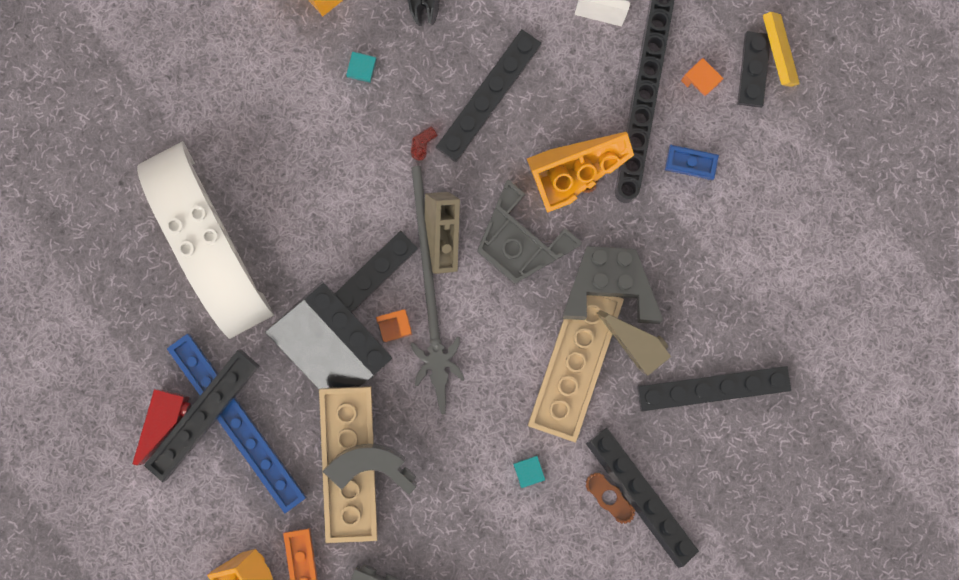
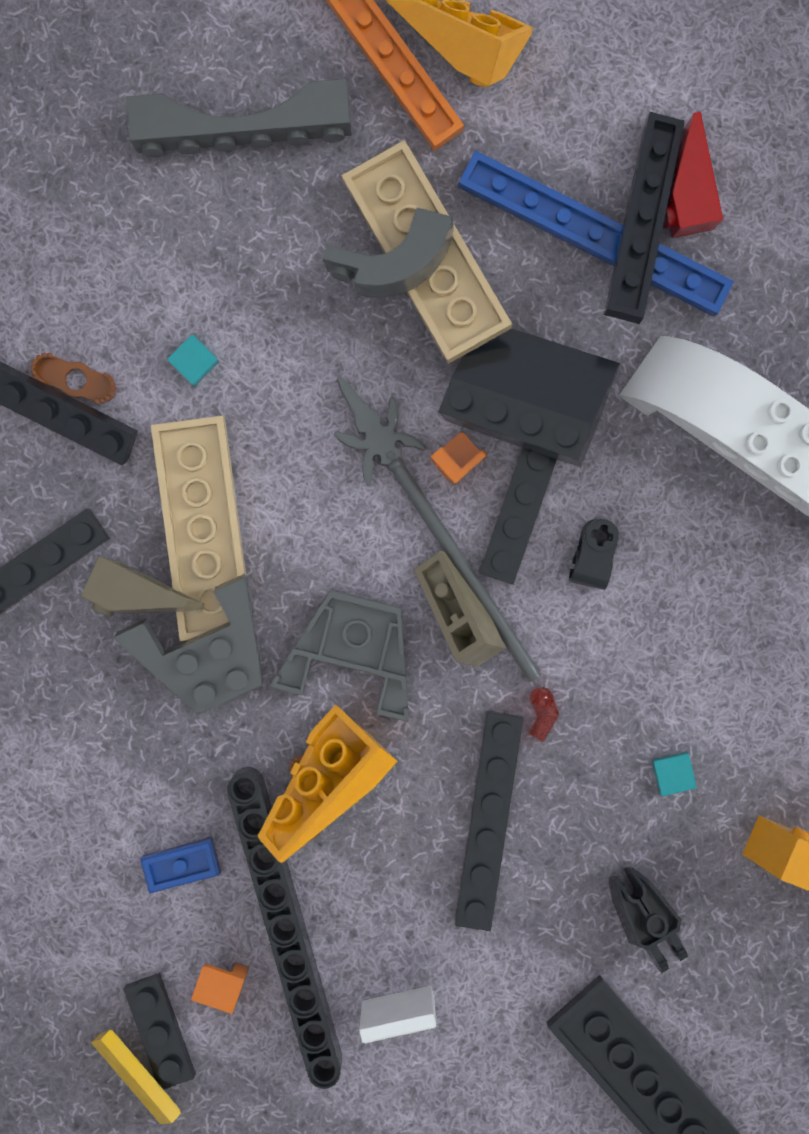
camera: 160 degrees right, 5 degrees up
(343, 220) = (594, 561): none -> black piece

